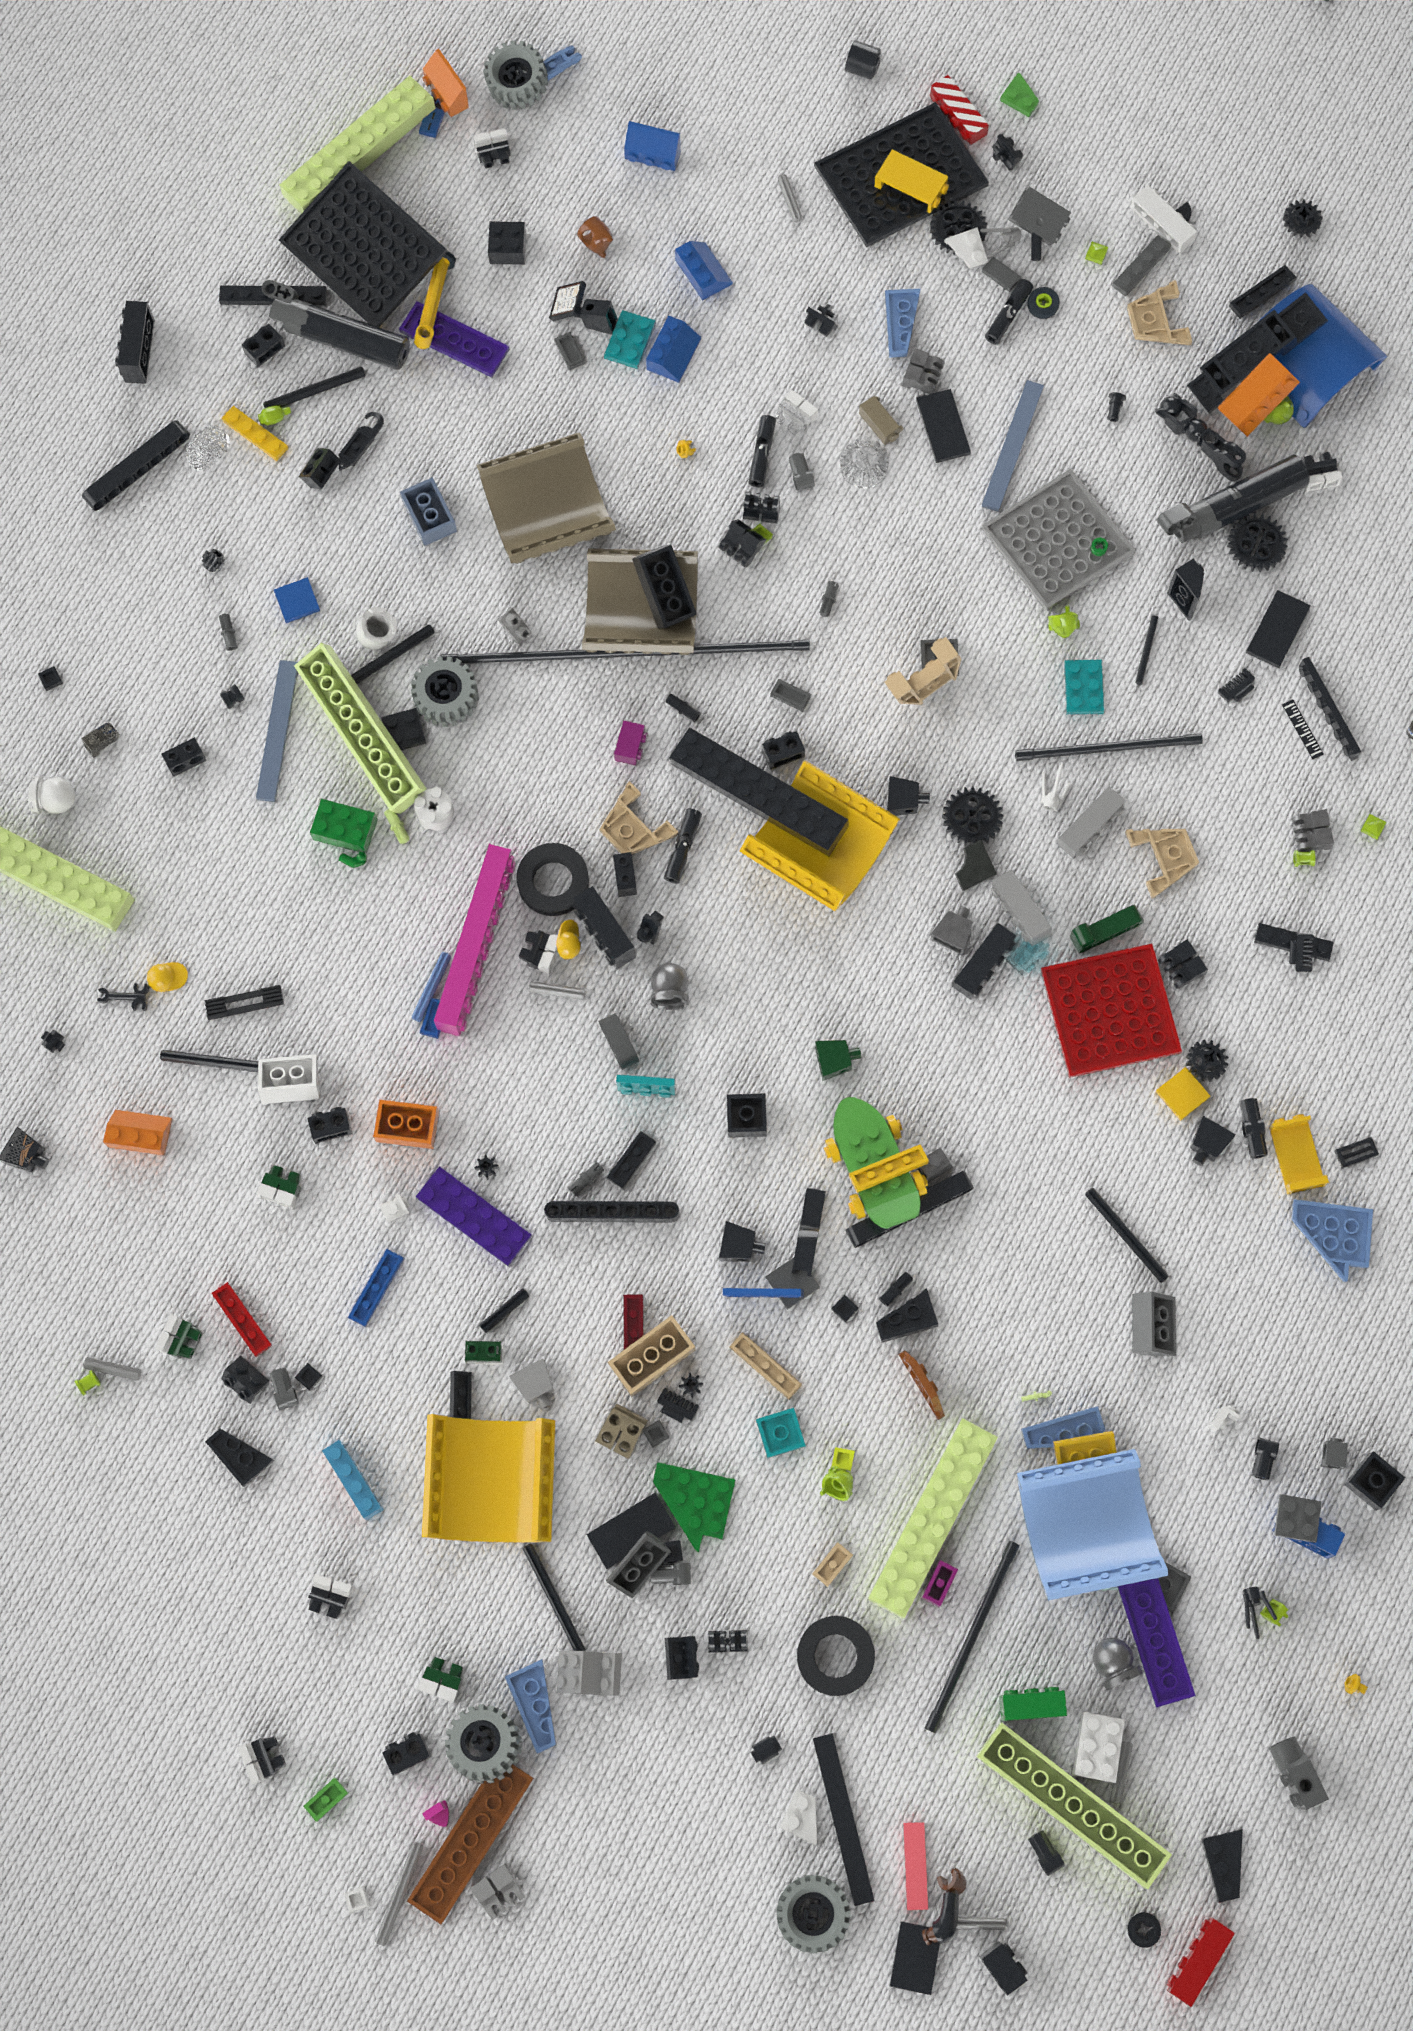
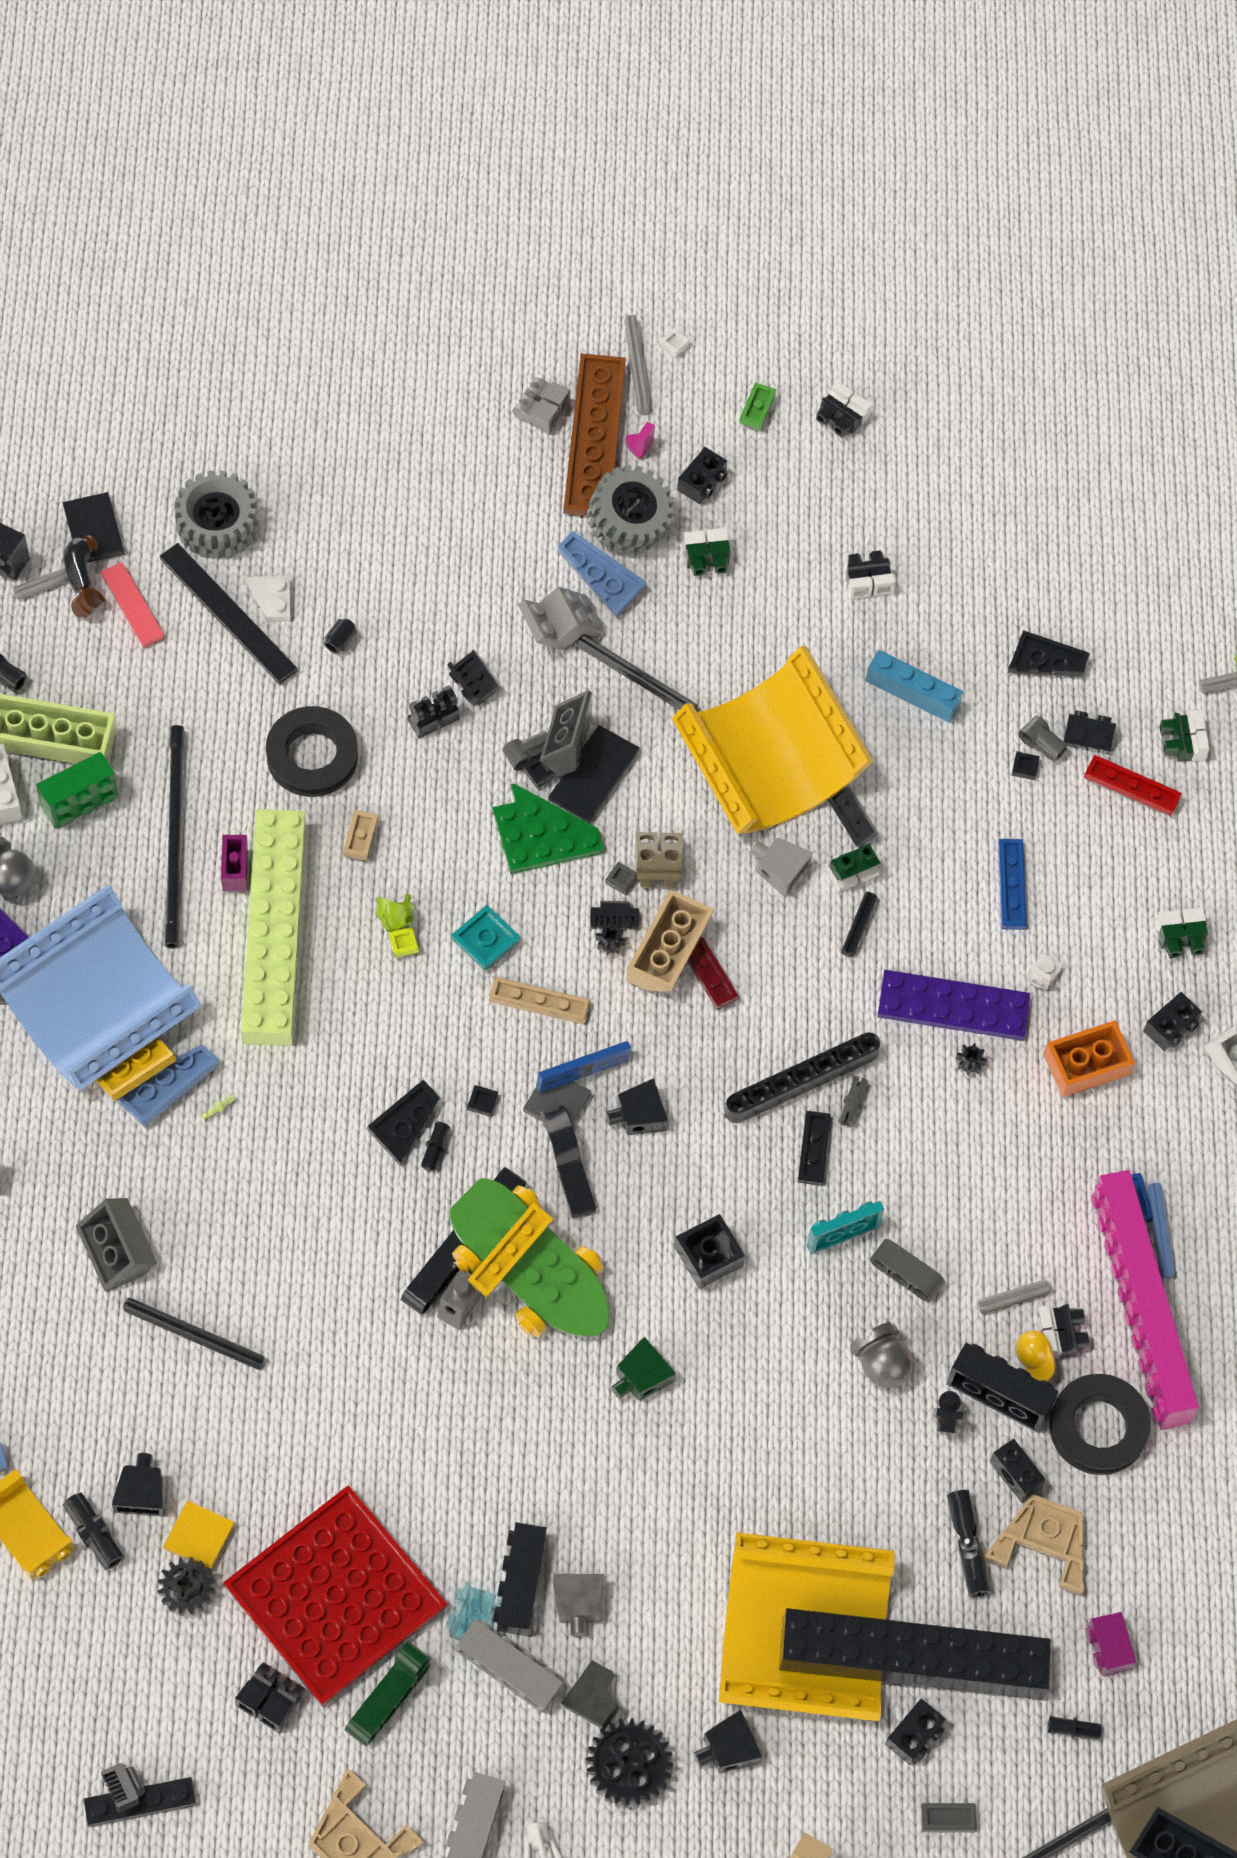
camera: 145 degrees right, 10 degrees down
(928, 1389) = (355, 1053): dark orange wing -> none

